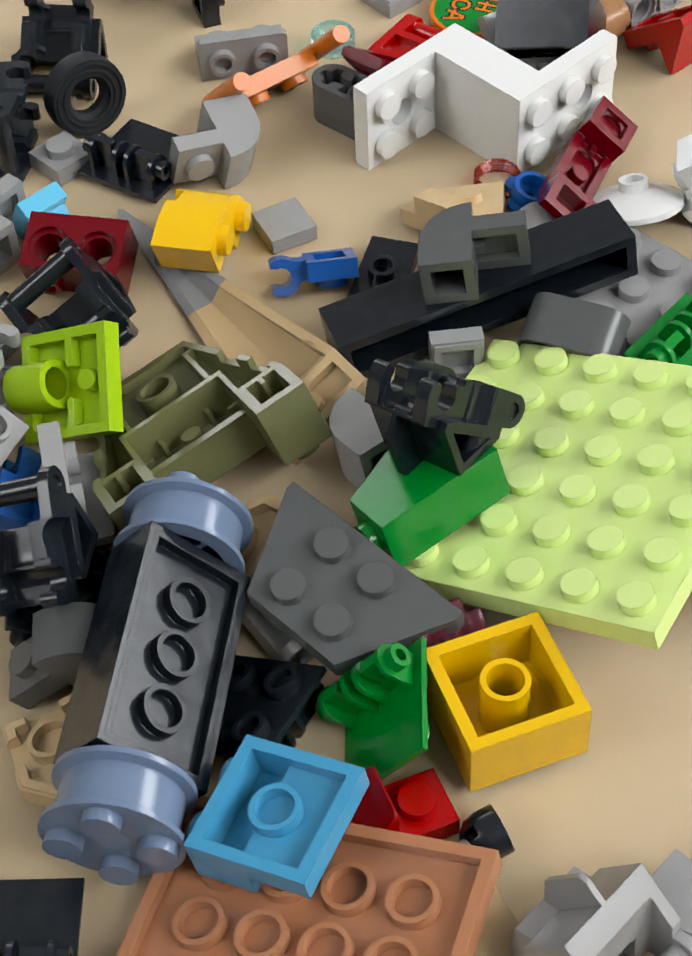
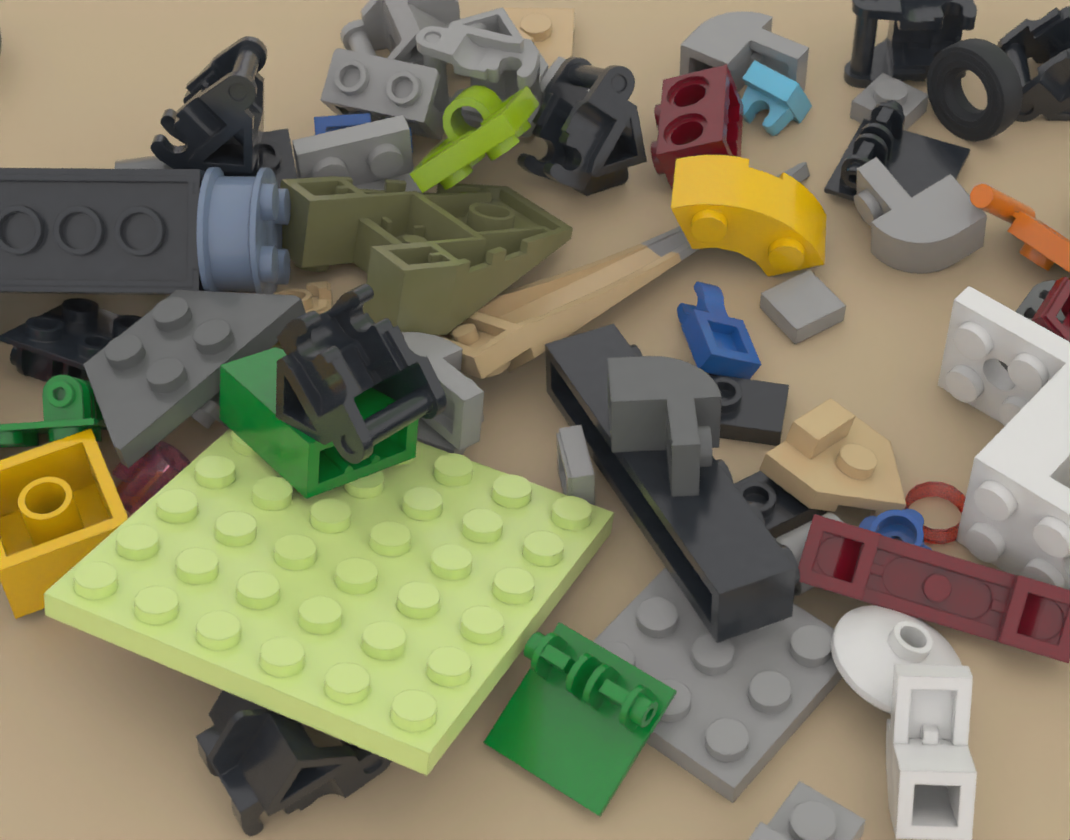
camera: 85 degrees right, 0 degrees up
(574, 325) = (599, 574): dark grey beam -> none

